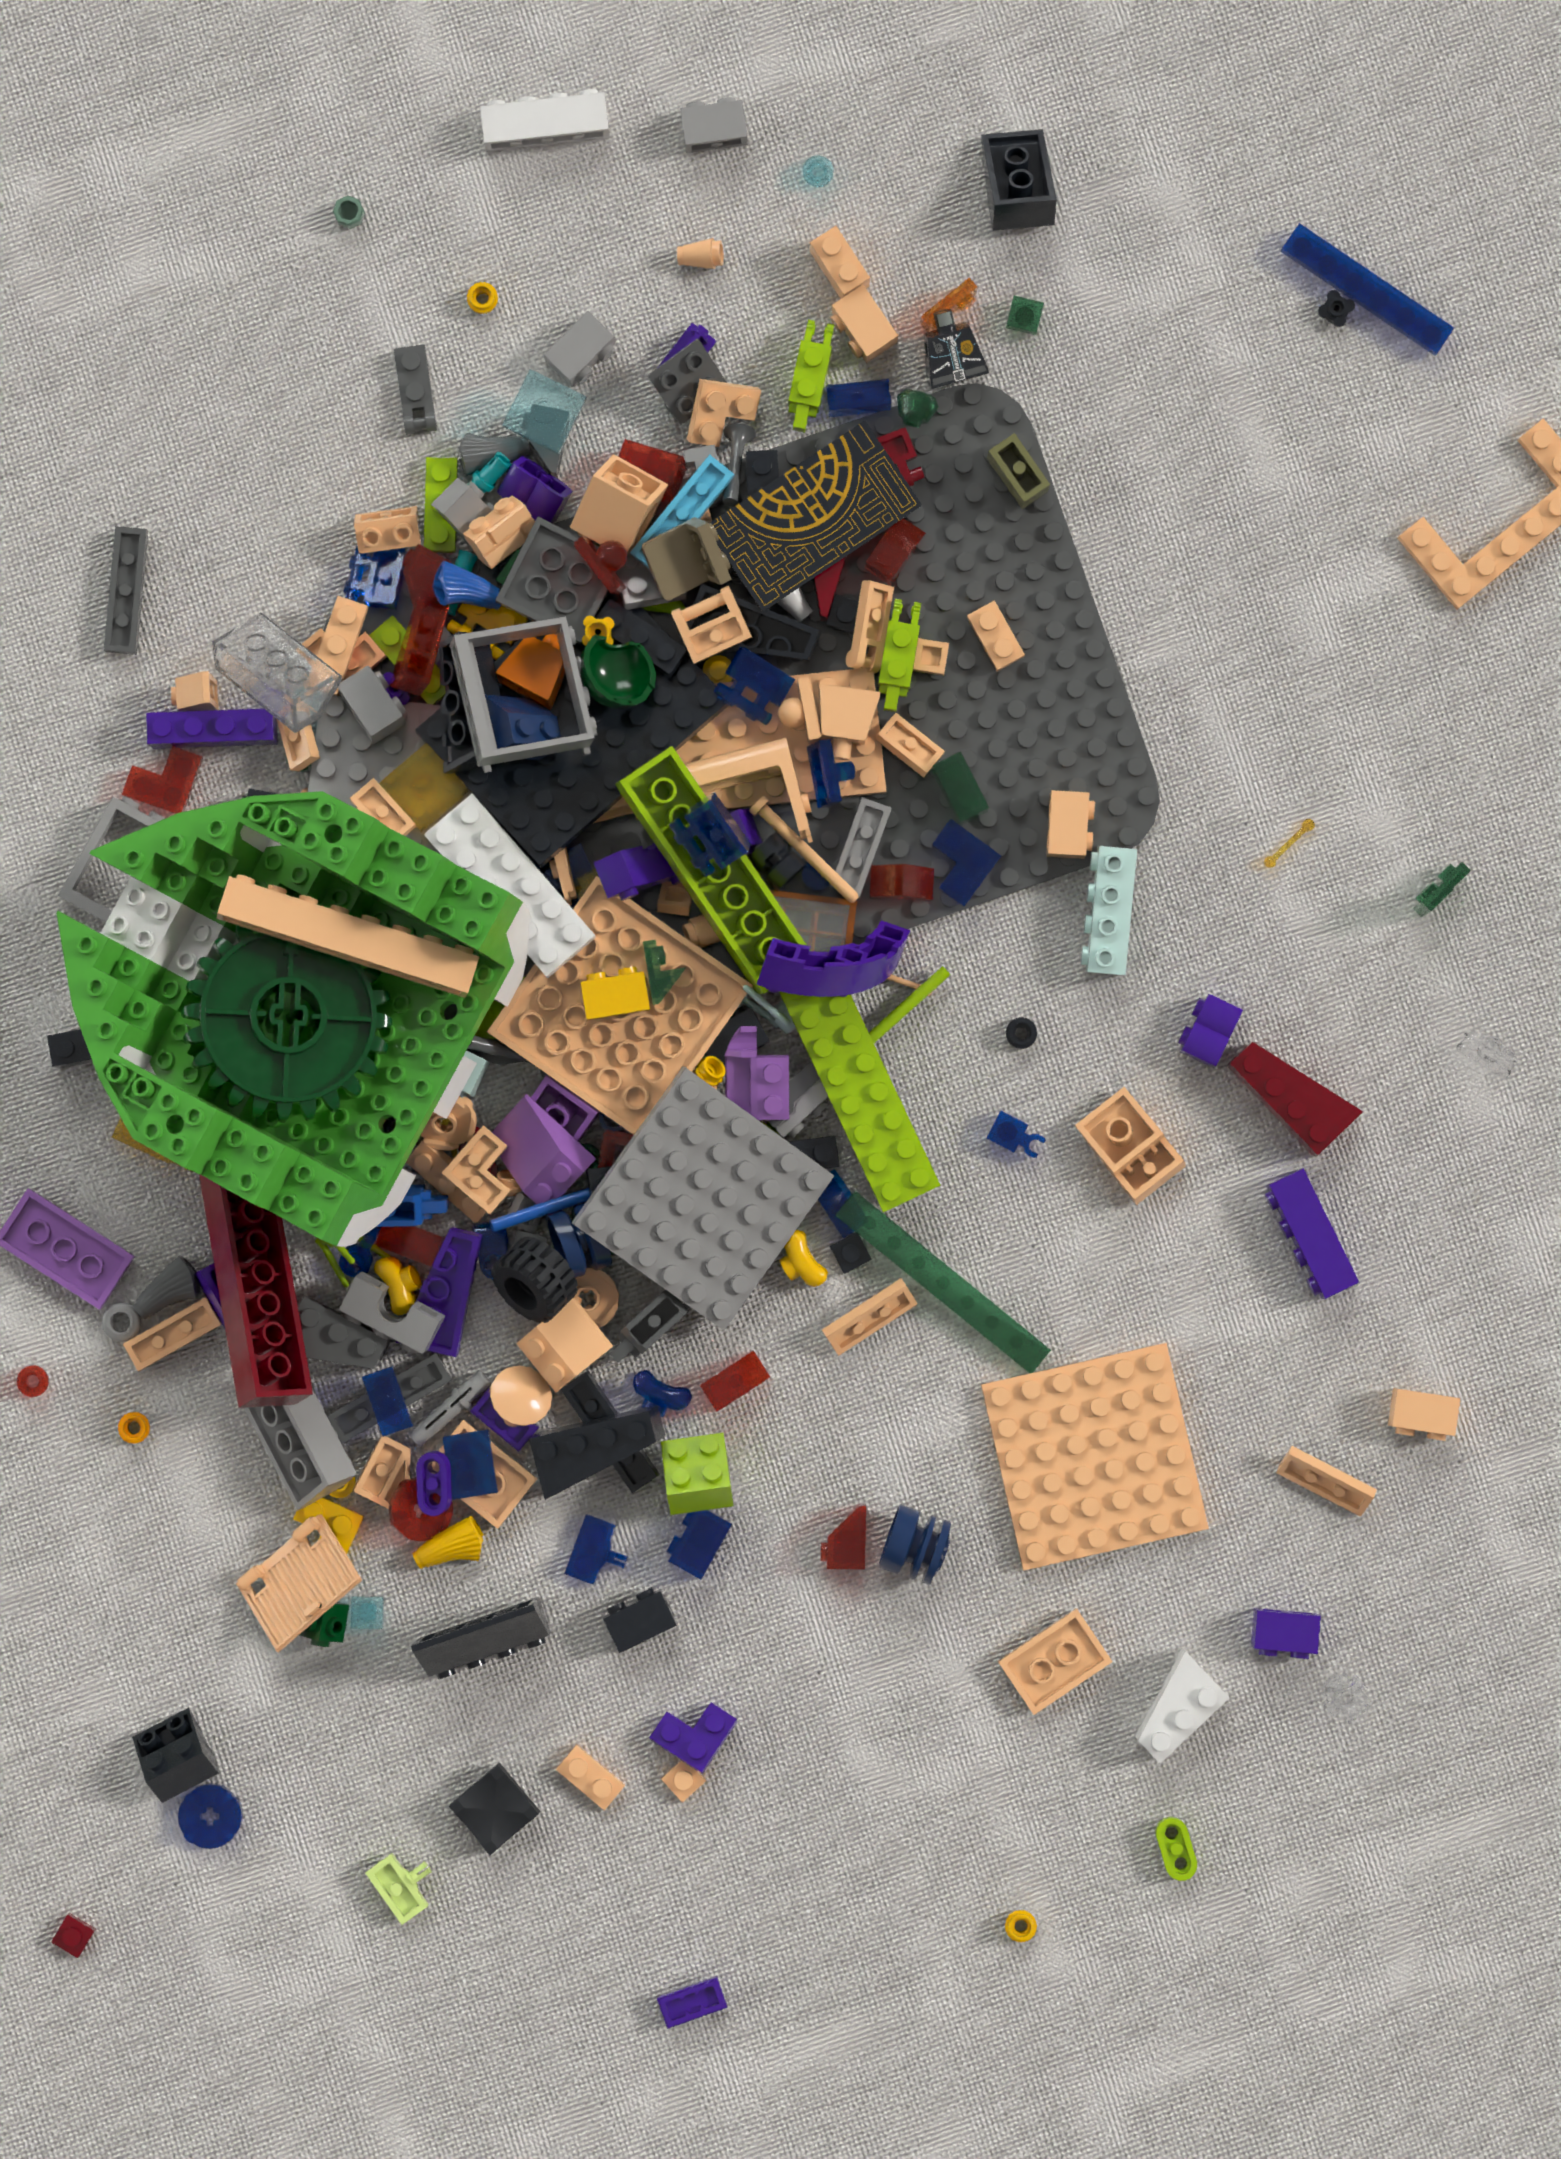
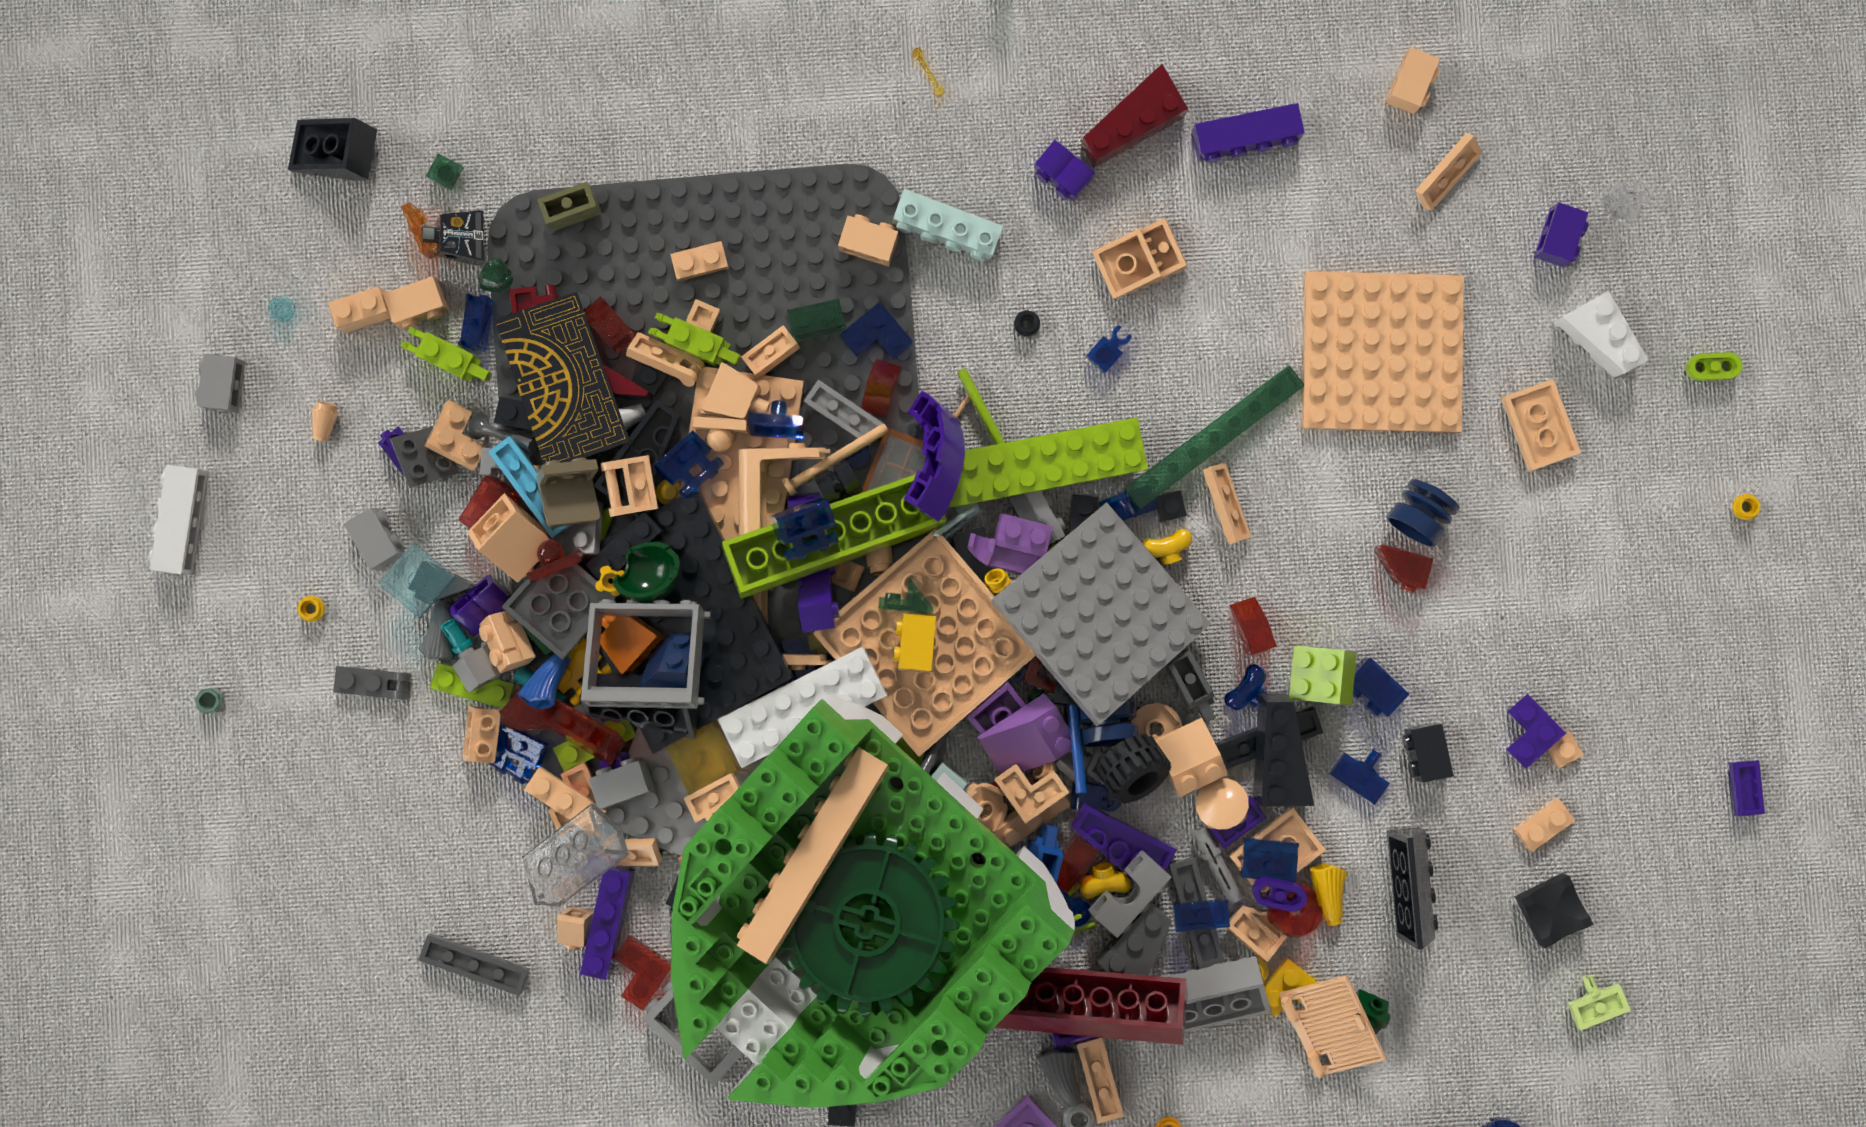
camera: 75 degrees left, 0 degrees up
(367, 1612) = (1367, 974): clear light blue plate -> none

